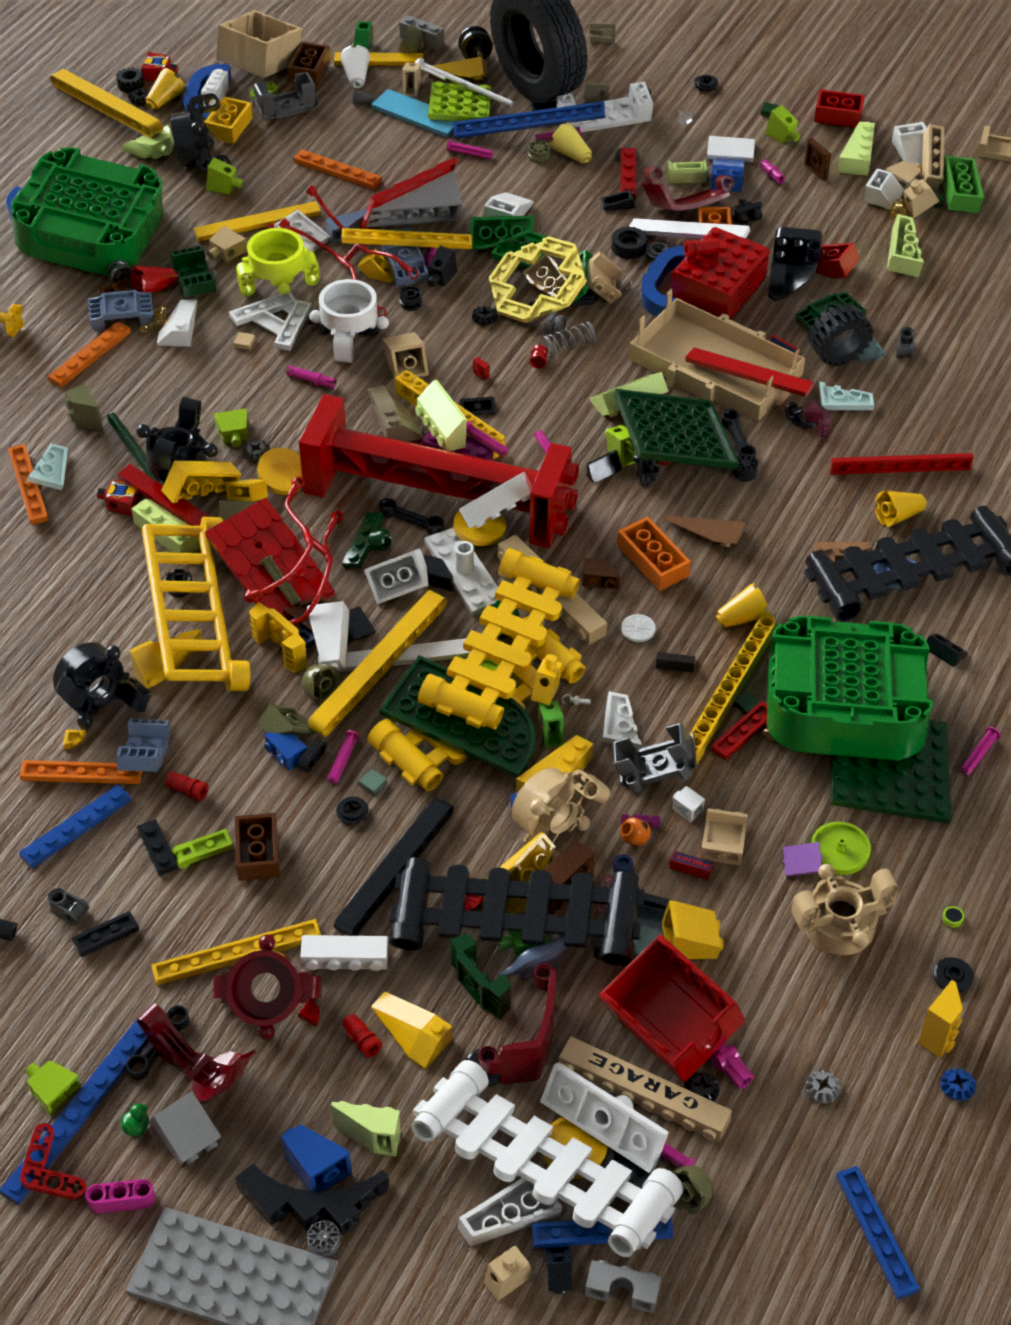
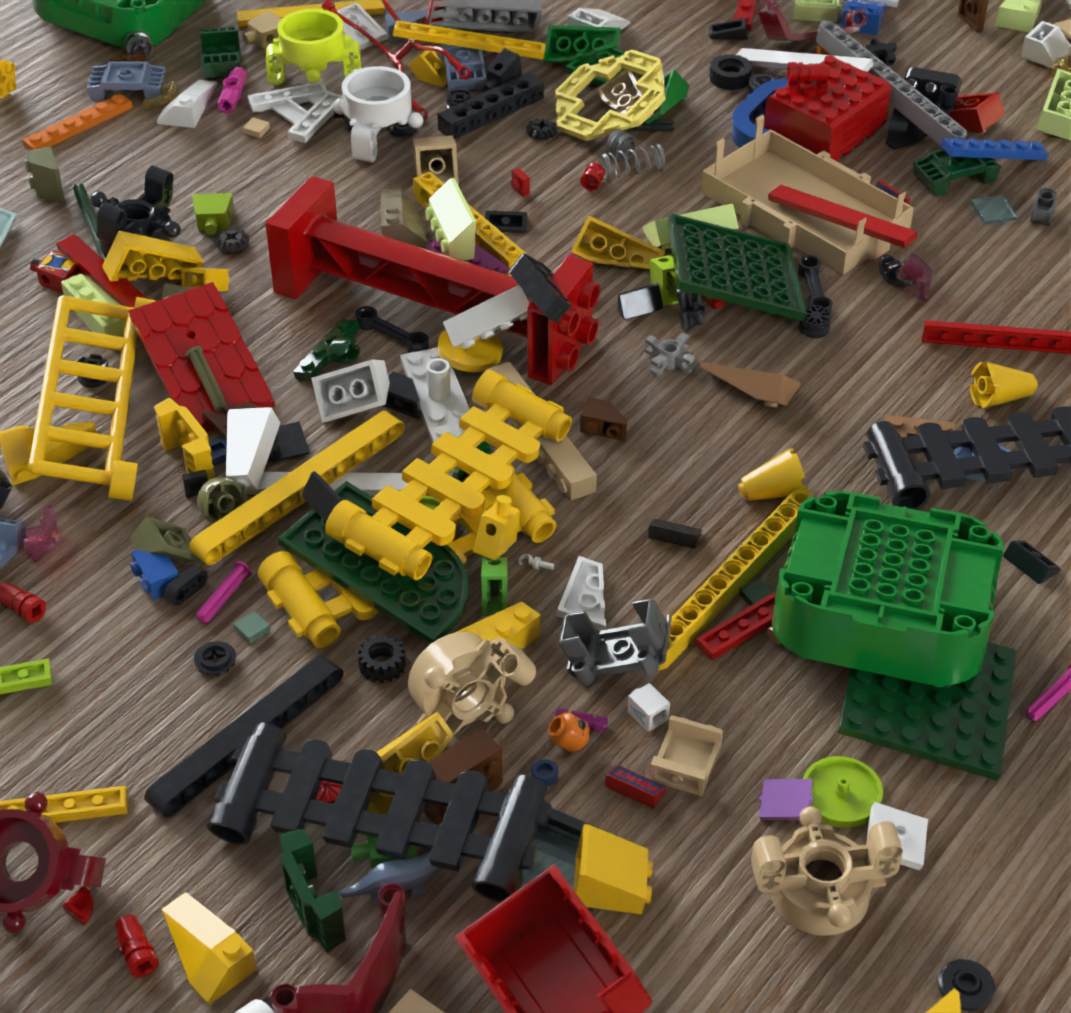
camera: 10 degrees right, 5 degrees down
(152, 278) = (172, 54): red cone -> none
(187, 729) = (42, 537): none -> clear pink slope
(214, 307) = (232, 90): none -> dark pink piece
(257, 846) = (78, 685): reddish brown brick -> none
(279, 468) = (249, 264): yellow piece -> none
(294, 670) = (193, 482): none -> black tile
(311, 542) = (162, 388): red bar -> none
(316, 378) = (327, 173): dark pink pin -> none
(344, 952) = (146, 833): white brick -> none
(406, 673) = (320, 495): none -> black slope
(437, 298) = (490, 105): none -> black brick
(476, 784) = (381, 647): none -> black tyre
(486, 440) = (495, 249): dark pink axle -> none
(531, 469) = (536, 282): none -> black beam
(568, 420) = (611, 246): none -> yellow wedge
(603, 276) = (690, 101): tan panel -> none
(637, 509) = (669, 354): none -> light grey pin
(638, 628) = (637, 487): white wheel -> none
(653, 553) = (676, 403): orange brick -> none
(772, 171) = (917, 17): dark pink pin -> none
(779, 255) = (903, 95): none -> light grey beam
(832, 325) = (954, 169): black tyre -> none
(839, 399) = (948, 259): light aqua wing -> none
(859, 295) = (994, 149): none -> blue plate
(896, 866) = (910, 830): none -> white plate
(953, 917) = (980, 905): tile -> none

